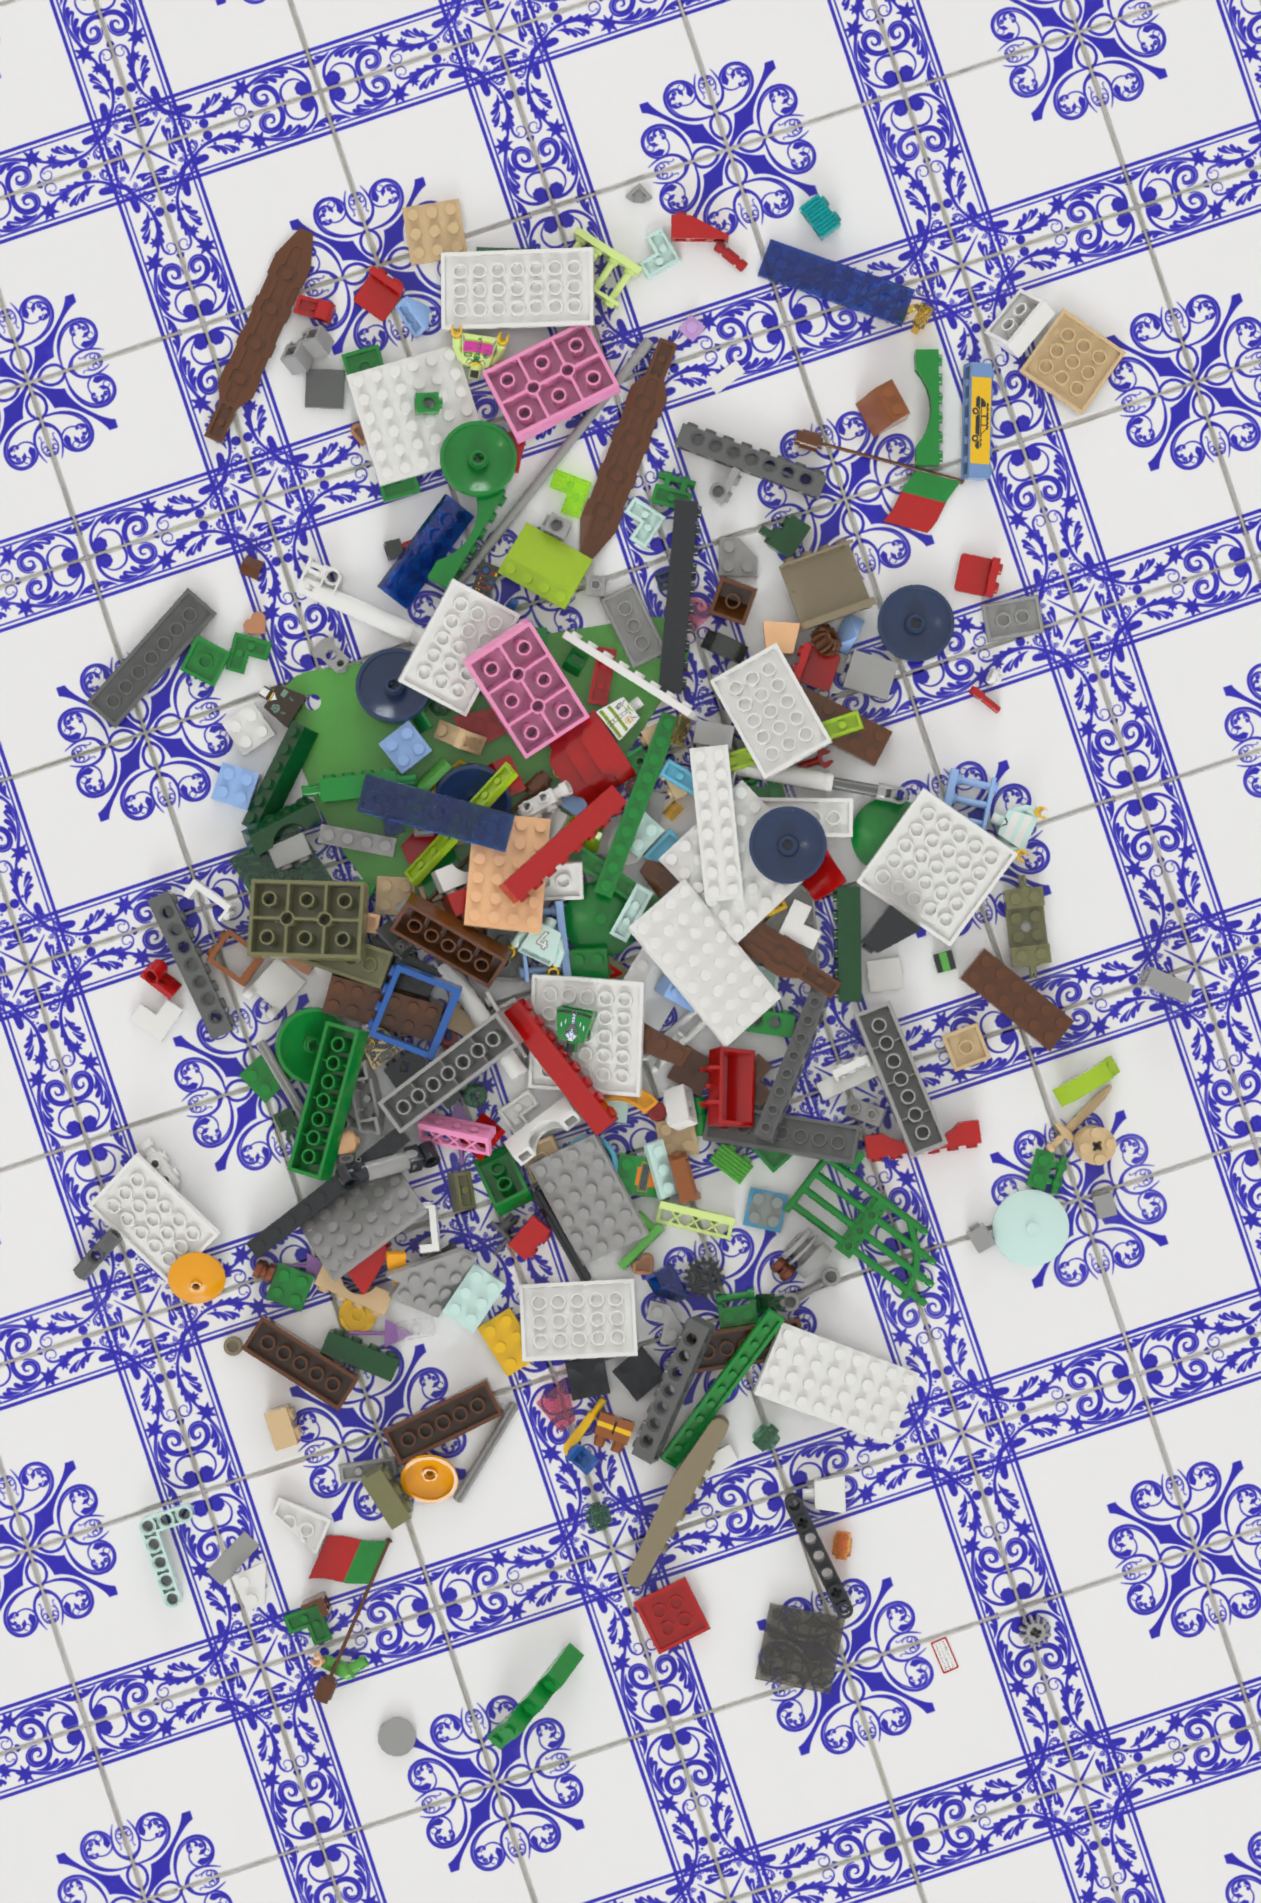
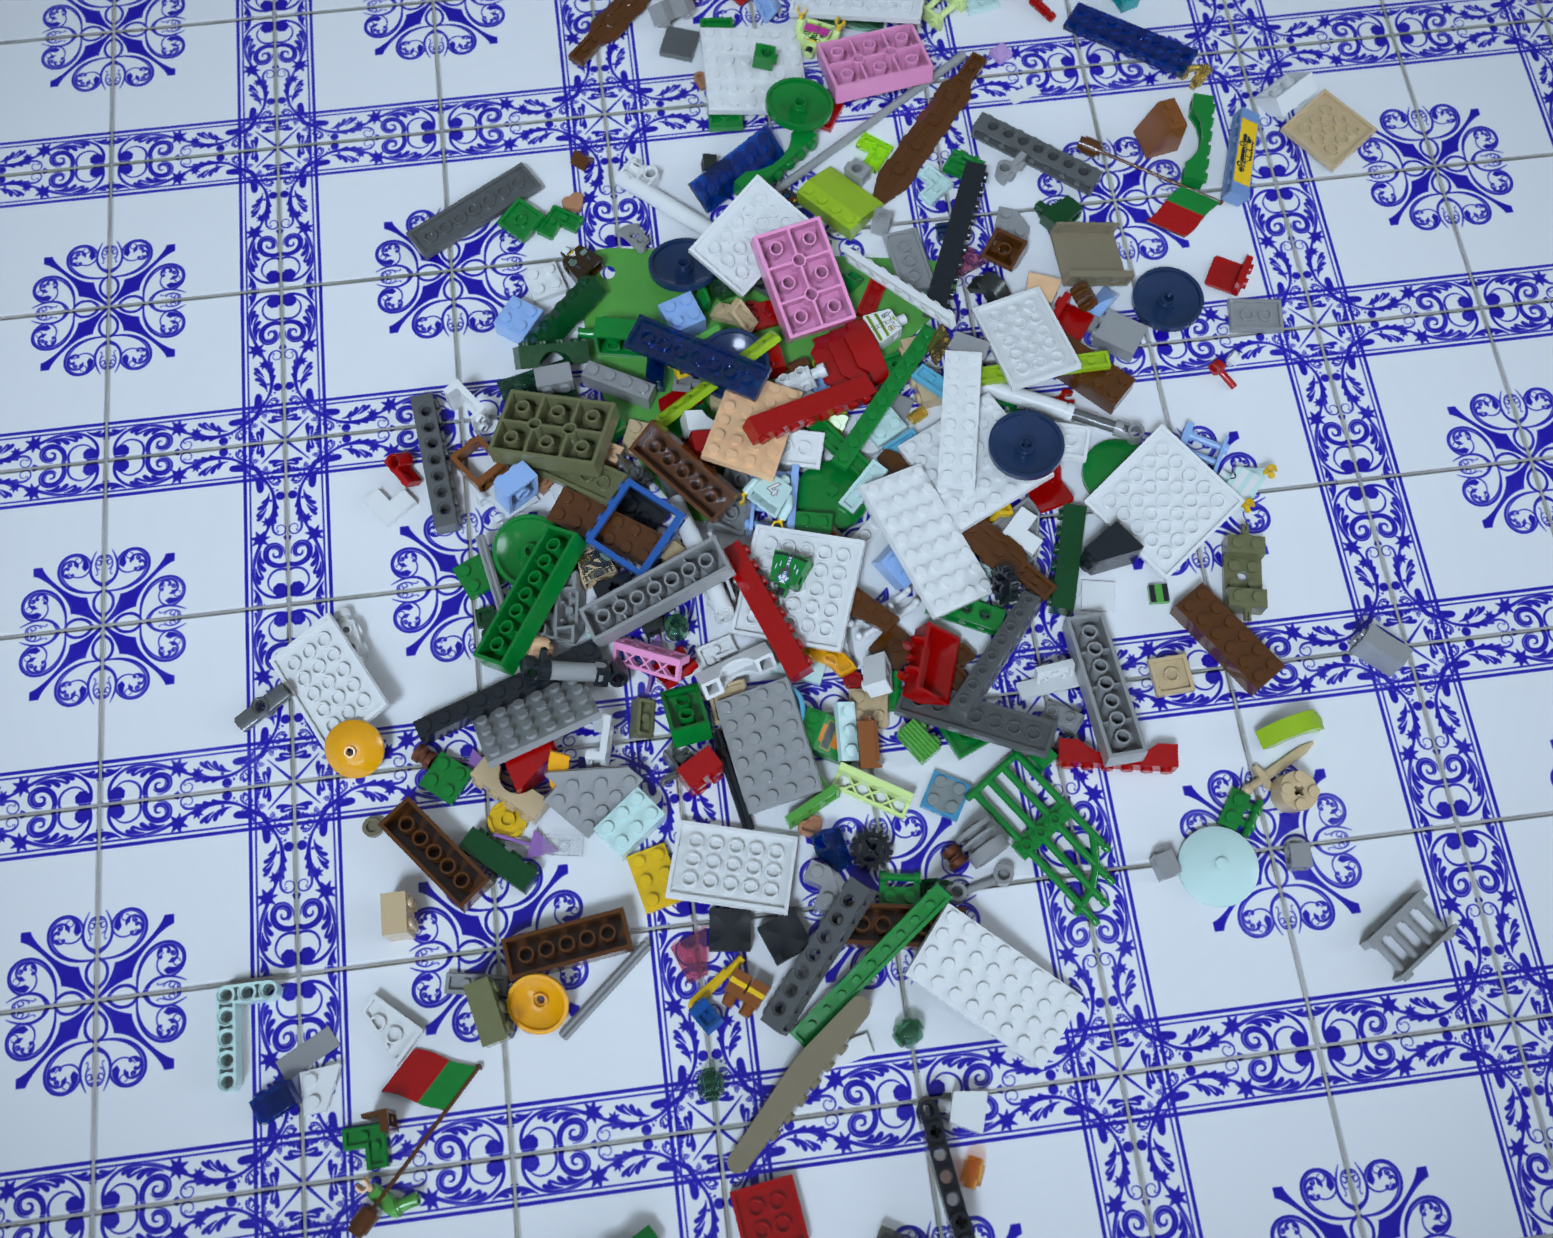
camera: 10 degrees right, 20 degrees down
(218, 1606) = (275, 1102): none -> clear blue brick
(282, 981) = (516, 486): none -> light blue brick
(789, 993) = (1005, 585): none -> black gear
(1193, 1256) = (1389, 928): none -> light grey fence

